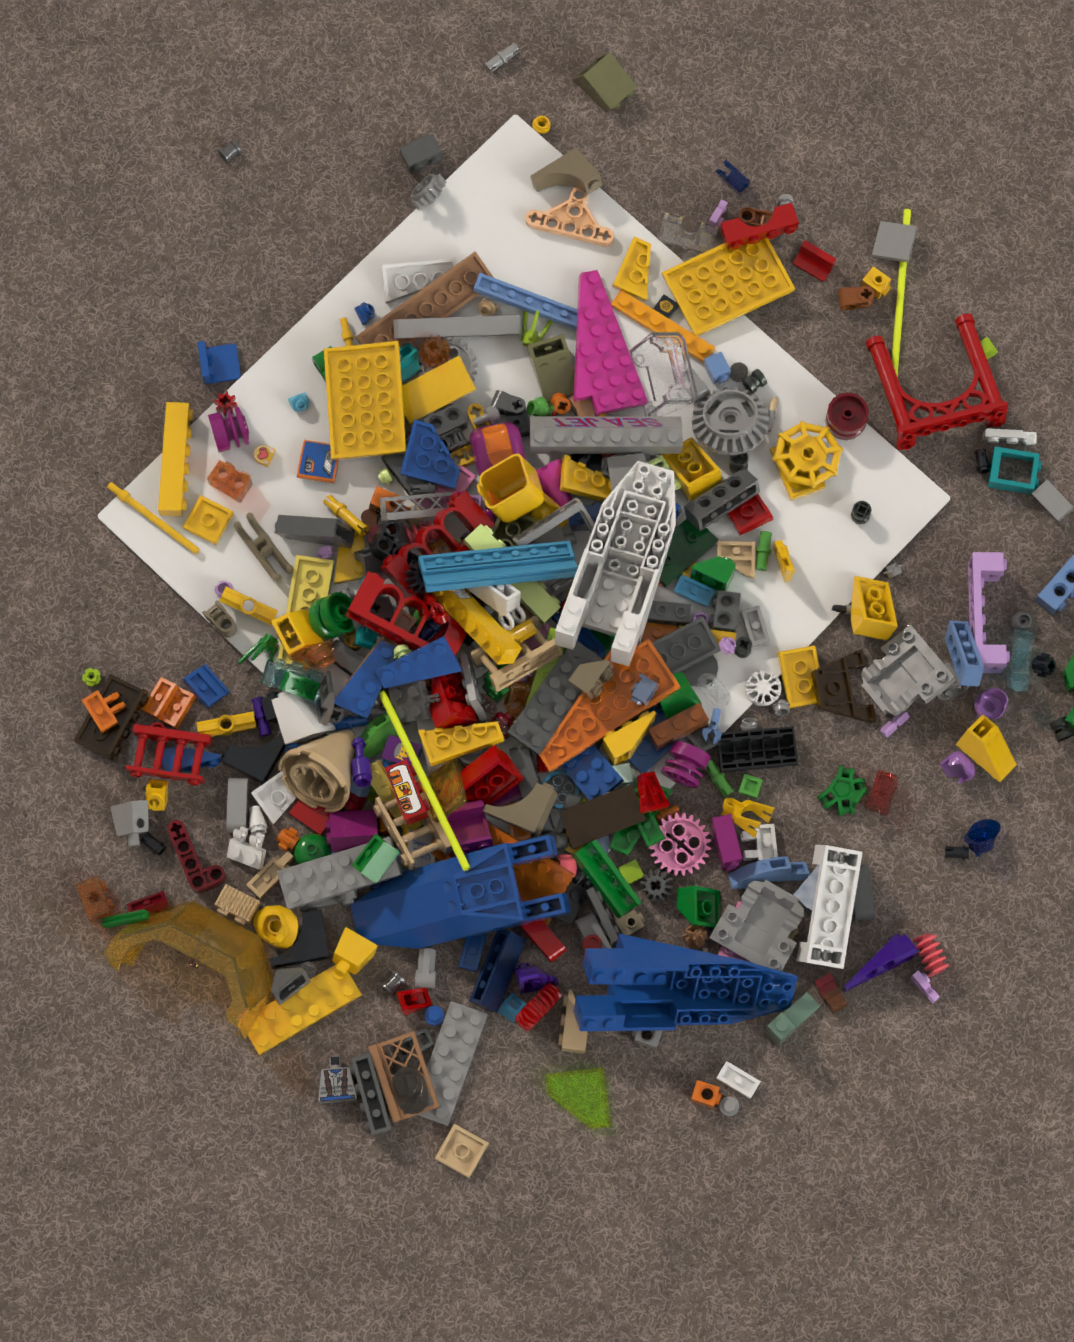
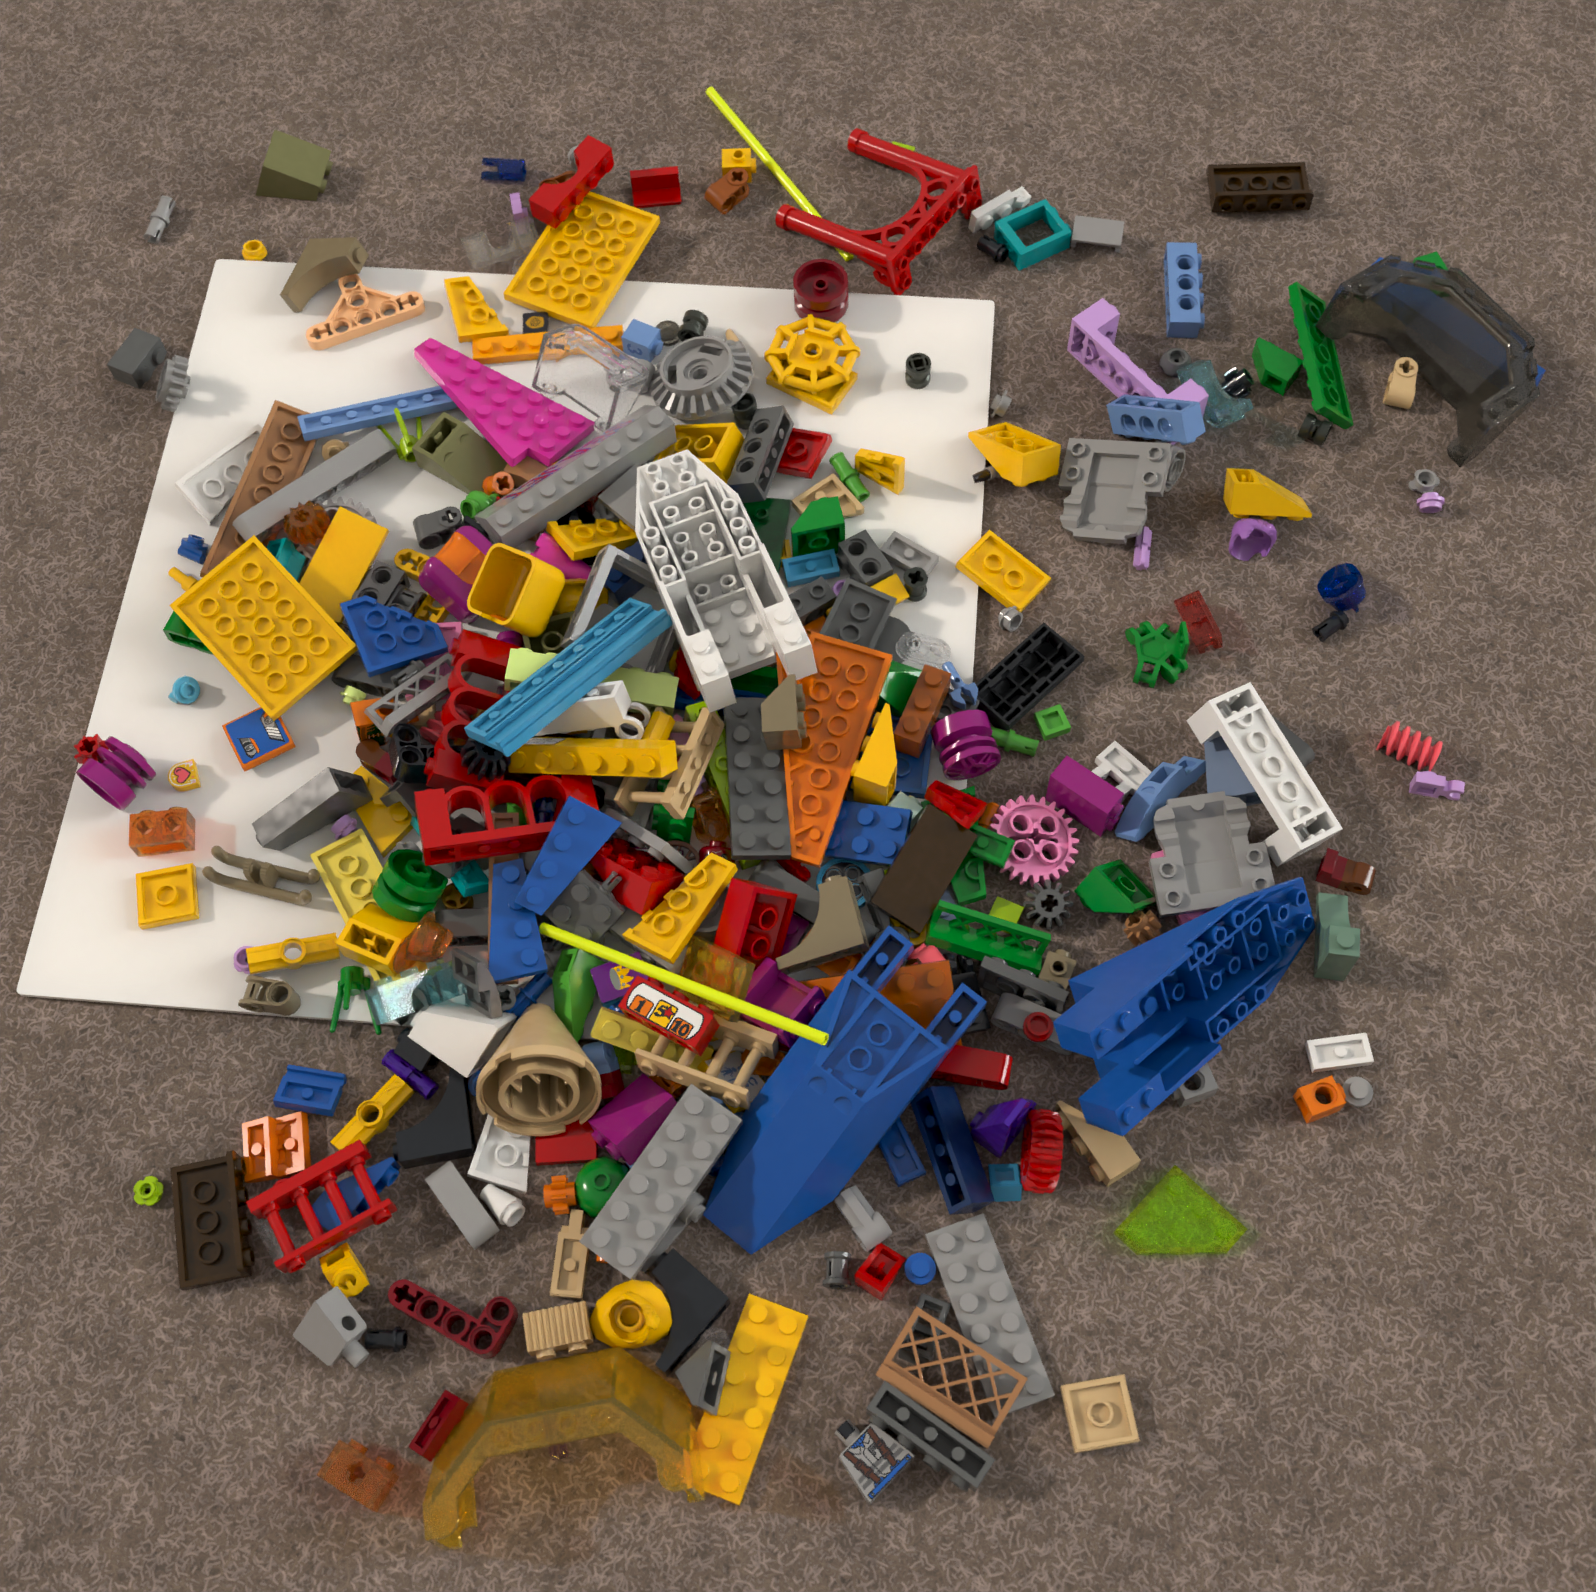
camera: 35 degrees left, 10 degrees down
(101, 712) = (189, 1222): orange hinge -> none
(125, 496) = (38, 943): yellow bar -> none
(125, 918) = (421, 1467): green axle -> none
(174, 459) = (72, 857): yellow brick -> none
(219, 363) = (52, 718): blue bracket -> none
(247, 853) = (518, 1254): white plate -> none
(299, 686) = (431, 992): green plate -> none
(340, 510) = (356, 766): yellow pin -> none
(352, 953) = (755, 1271): yellow torso -> none
(361, 765) = (584, 1027): dark purple piece -> none
(375, 858) = (696, 1121): panel -> none
(401, 650) = (527, 856): yellowish green plate -> none
(410, 1090) = (973, 1387): clear smoke piece -> none
(440, 617) = (524, 773): red piece -> none
(491, 415) = (427, 547): light grey plate -> none
(643, 690) = (855, 686): sand blue brick -> none
(727, 645) = (899, 589): lavender plate -> none
(736, 809) = (1053, 755): yellow piece -> none
(749, 724) = (992, 658): light grey plate -> none
(763, 688) = (973, 611): white wheel -> none
(834, 688) = (1054, 558): dark brown wing -> none
(893, 954) = (1367, 786): dark purple wedge -> none
(894, 241) = (722, 120): light grey tile -> none
(991, 703) = (1223, 452): medium lavender hair -> none

